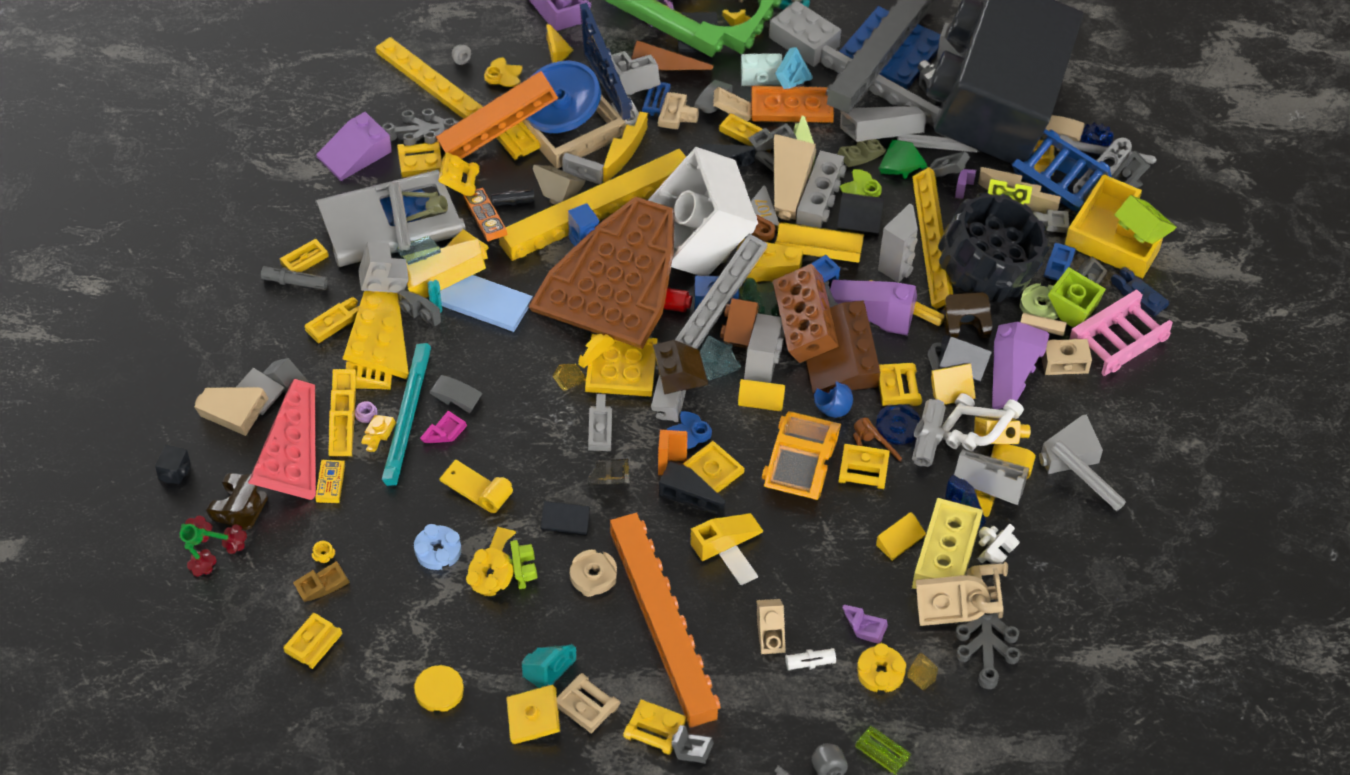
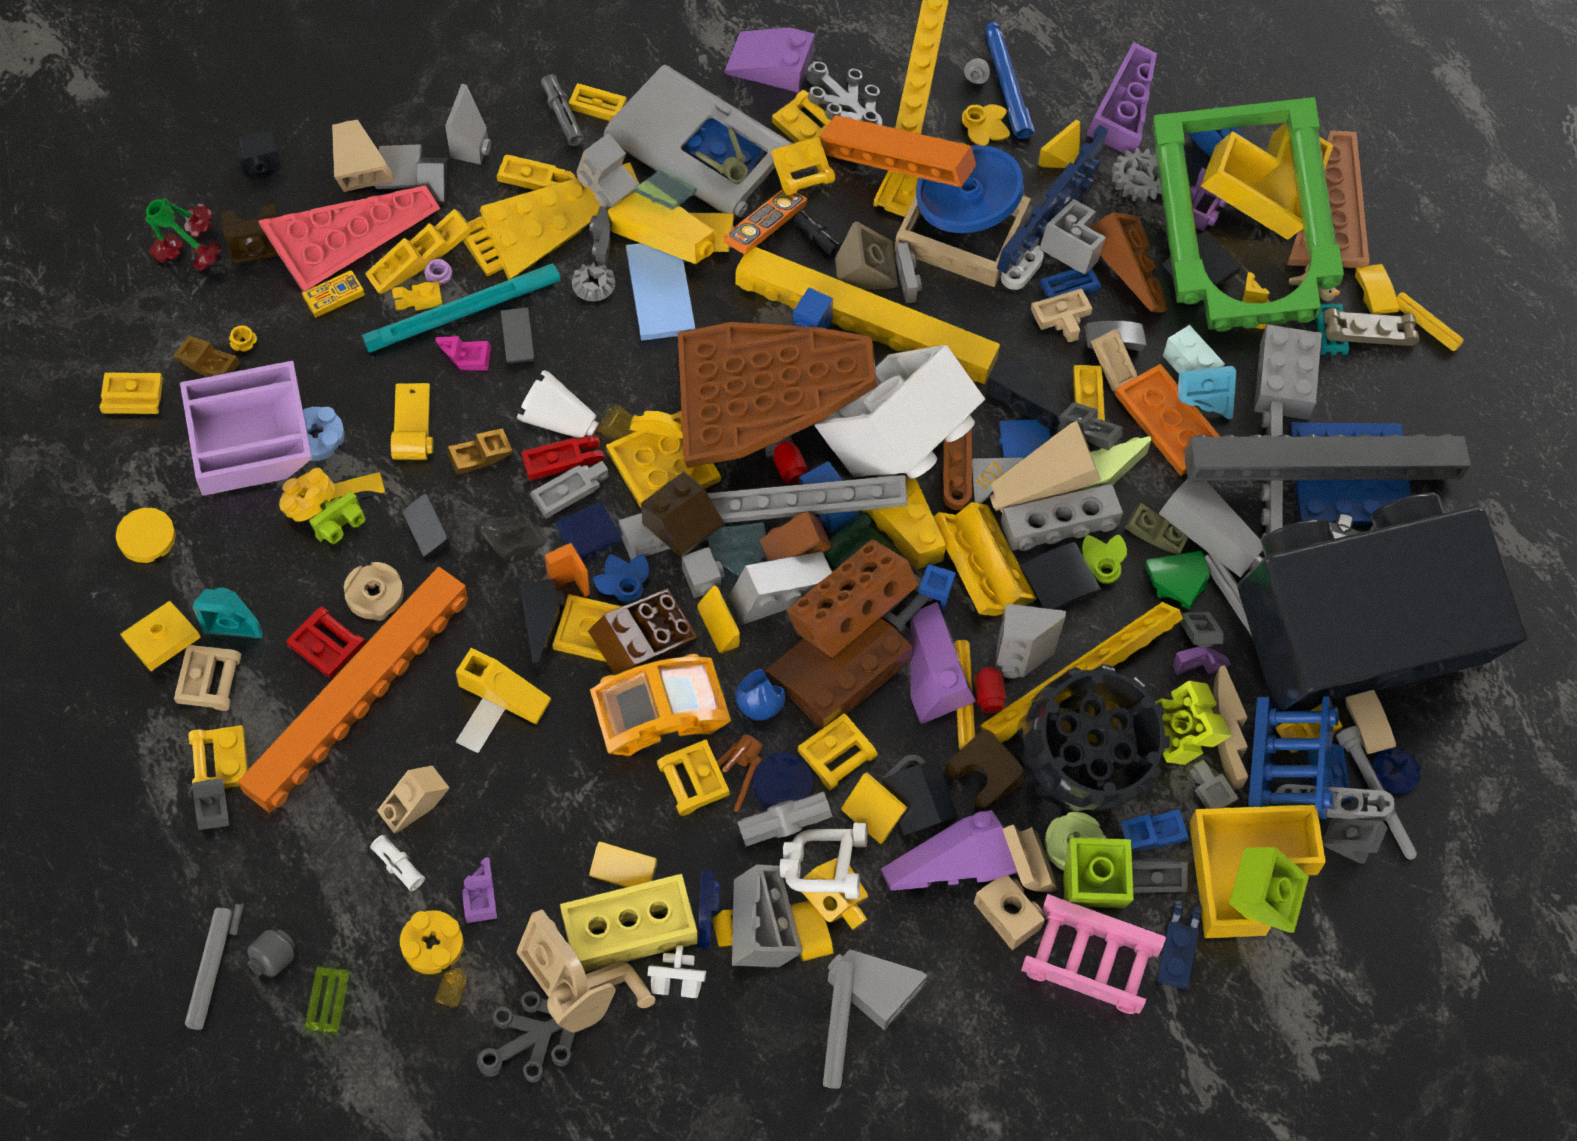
camera: 55 degrees right, 10 degrees up
(267, 333) = (467, 130): none -> light grey slope
(399, 216) = (693, 146): light grey axle -> none
(406, 579) = (245, 427): none -> lavender slope
(434, 293) = (617, 240): teal axle -> none
(455, 334) = (589, 290): none -> light grey gear
(480, 44) = (1017, 113): none -> blue piece
(530, 460) = (476, 454): none -> pearl gold slope
(535, 397) = (557, 409): none -> white cone
(571, 418) = (561, 456): none -> red hinge
(611, 21) = (1139, 176): none -> light grey gear
(613, 625) = (319, 648): none -> red plate
(623, 149) = (960, 294): yellow slope -> none
(640, 431) = (589, 530): none -> clear blue piece
(721, 386) = (702, 572): none -> light grey brick
(743, 439) = (642, 632): none -> reddish brown slope
(754, 178) = (1021, 437): none -> blue piece
(921, 287) = (990, 690): none -> red brick

